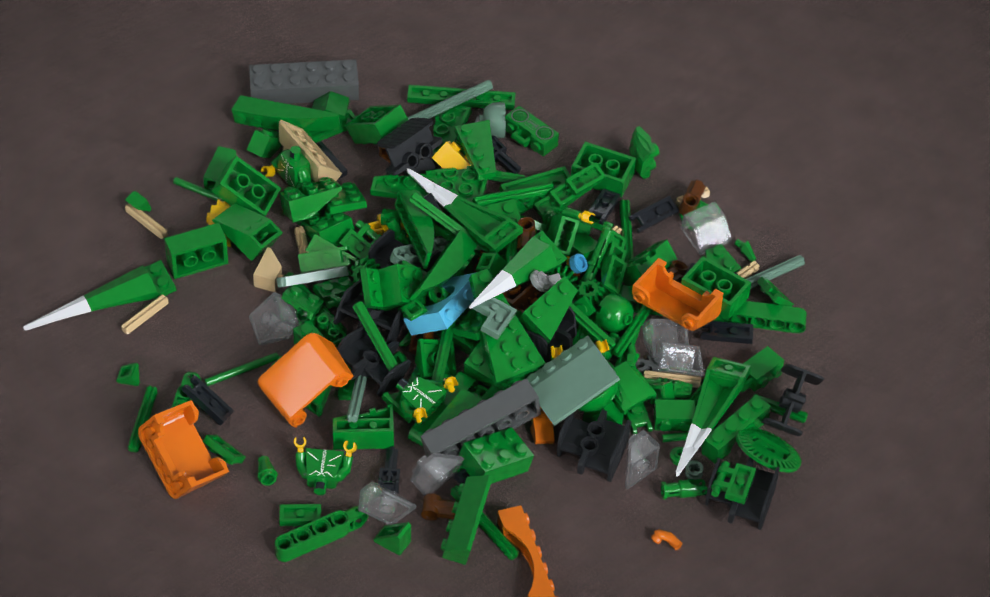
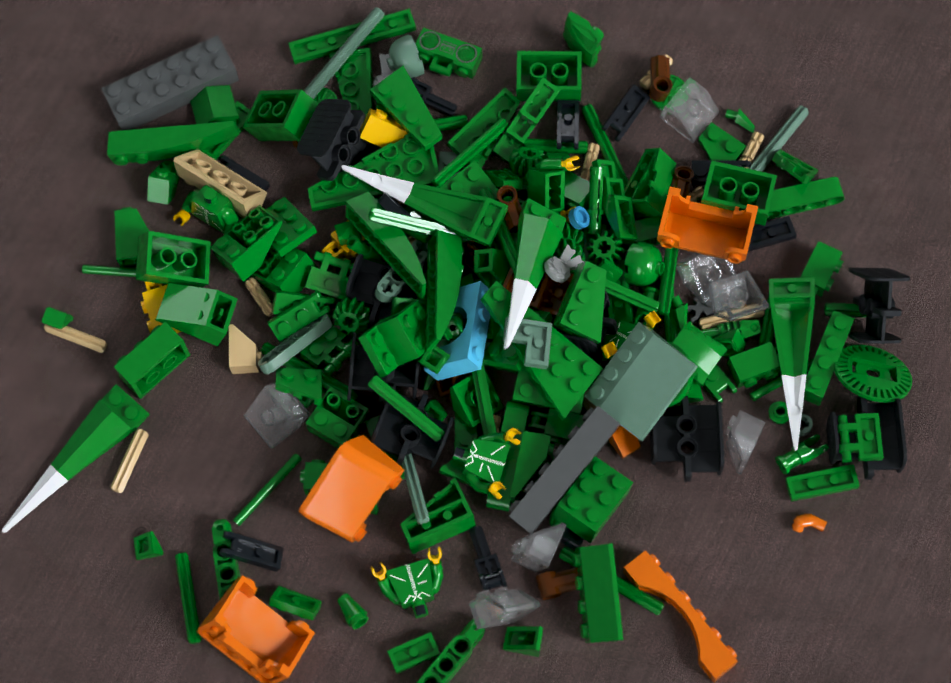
camera: 15 degrees left, 20 degrees up
(691, 514) = (822, 482): none -> green plate

